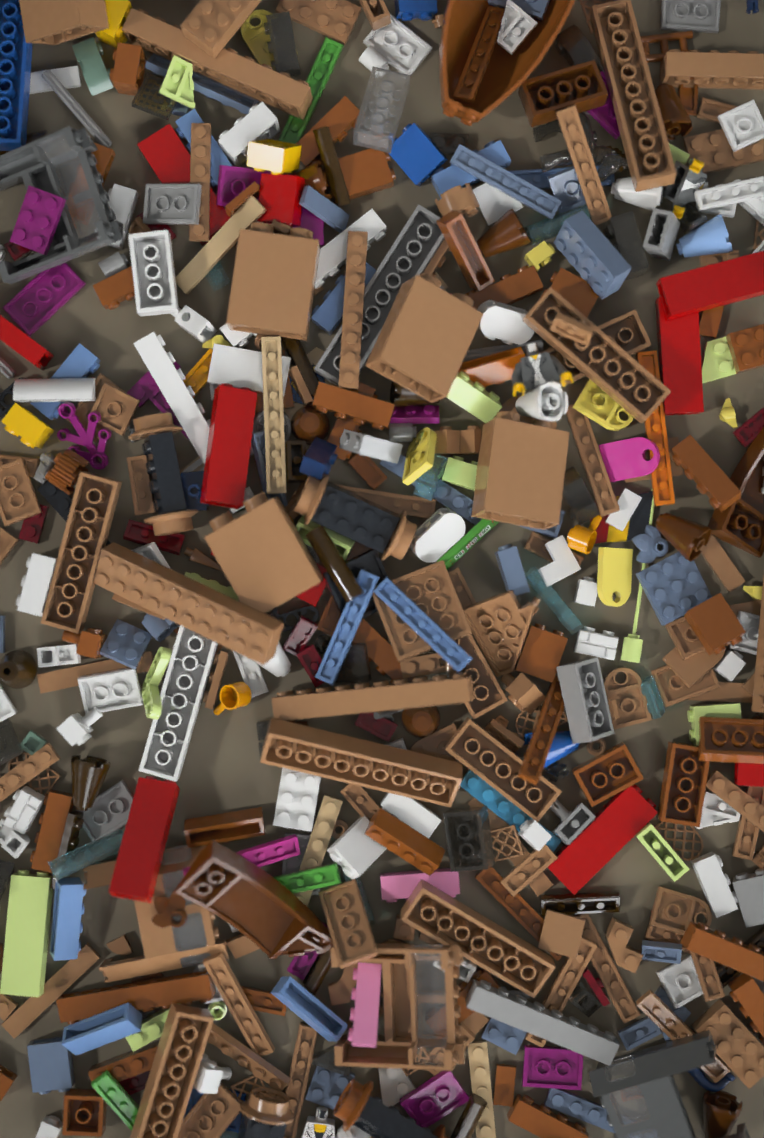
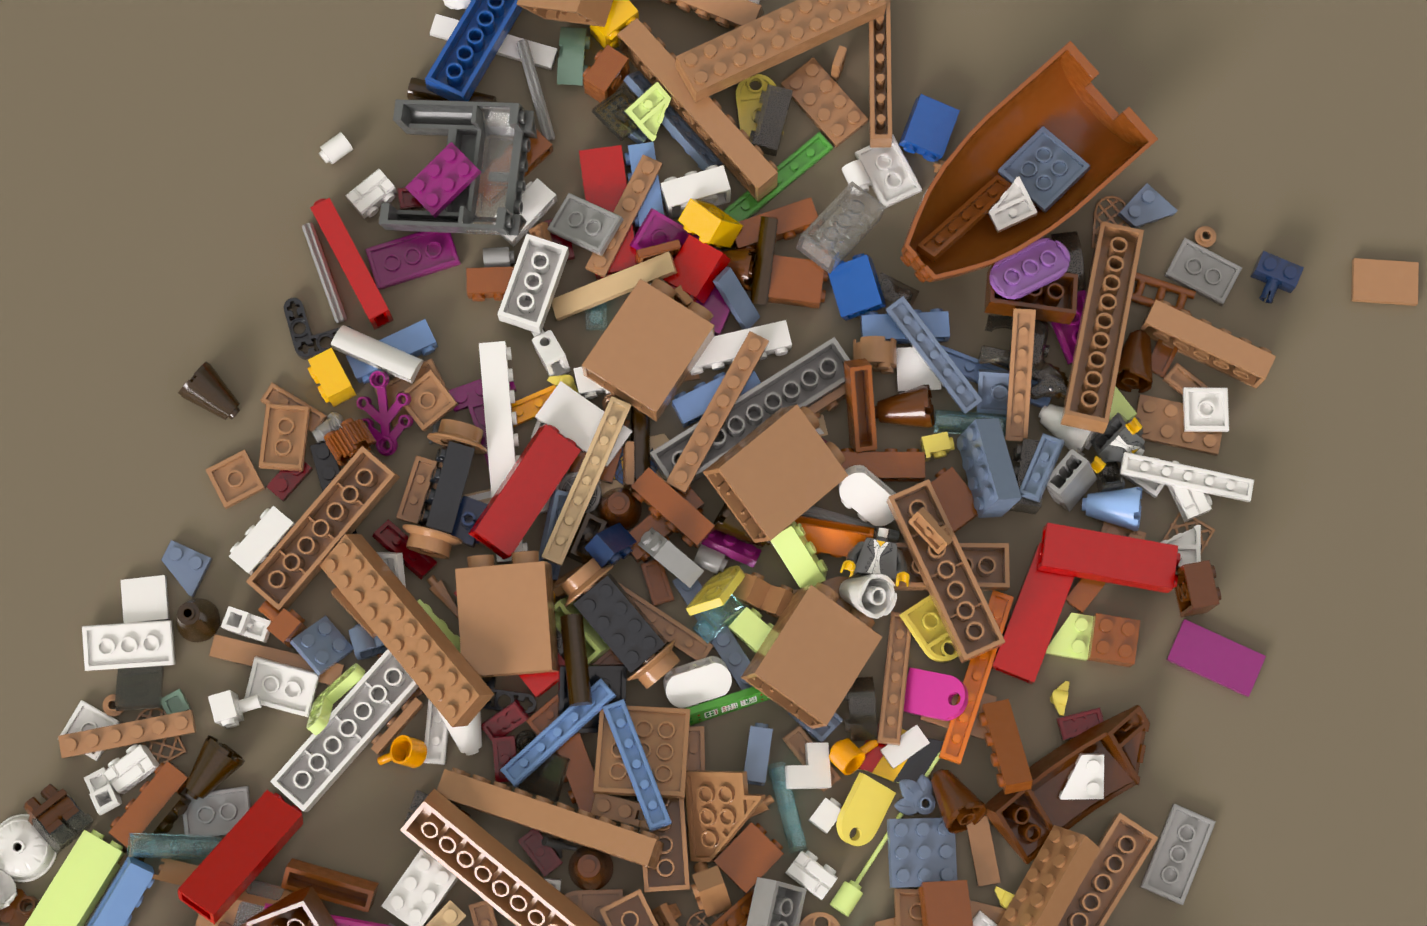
camera: 25 degrees right, 10 degrees down
(554, 73) = (1030, 269): none -> medium lavender tile
(636, 235) = (1041, 467): none -> sand blue tile

